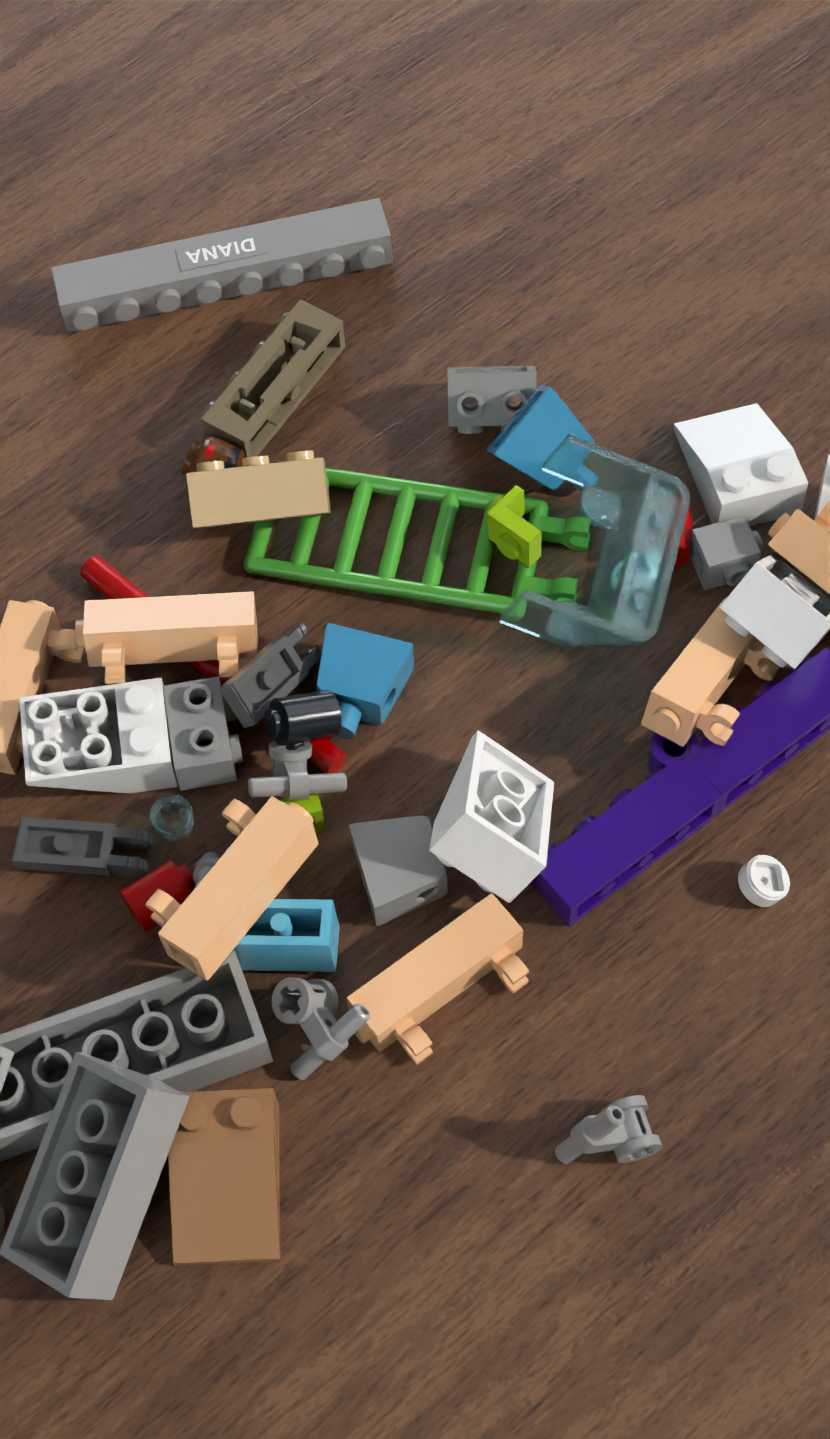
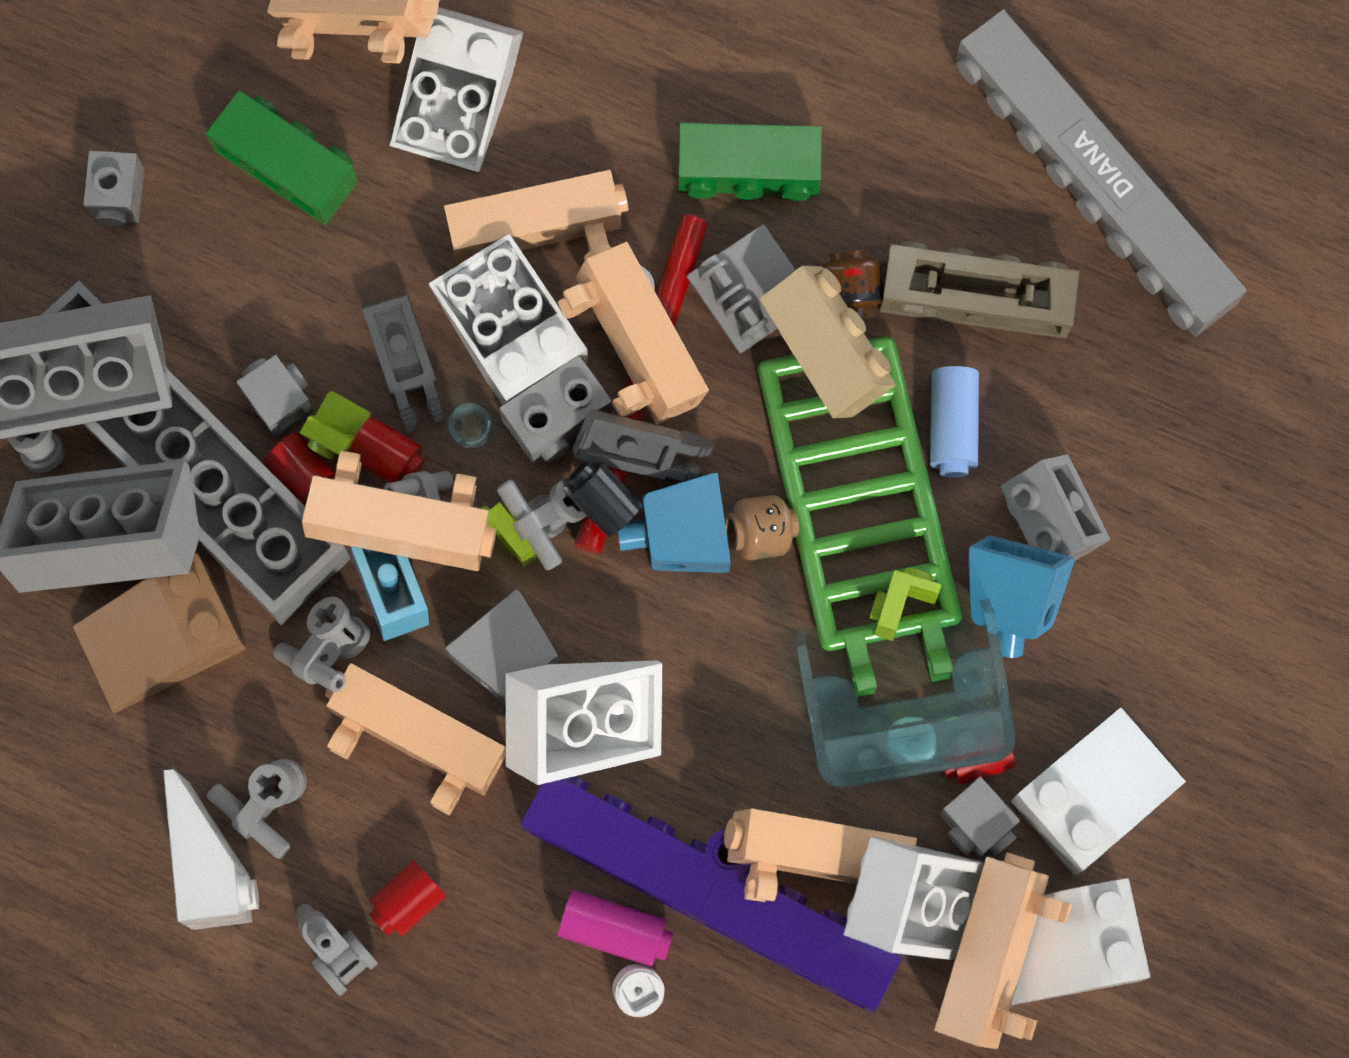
camera: 60 degrees right, 15 degrees up
(49, 971) = (276, 394): none -> light grey brick
(63, 501) = (750, 160): none -> green brick
(110, 927) = (334, 425): none -> lime bracket
(134, 969) = (296, 465): none -> red brick
(173, 552) = (736, 281): none -> light grey hinge
(374, 441) = (954, 420): none -> light blue brick
(392, 612) = (761, 527): none -> medium nougat head
(450, 1164) = (250, 818): none -> light grey piece
(480, 1211) = (207, 874): none -> white slope
(594, 1047) = (405, 900): none -> red brick
(699, 876) = (615, 929): none -> dark pink brick

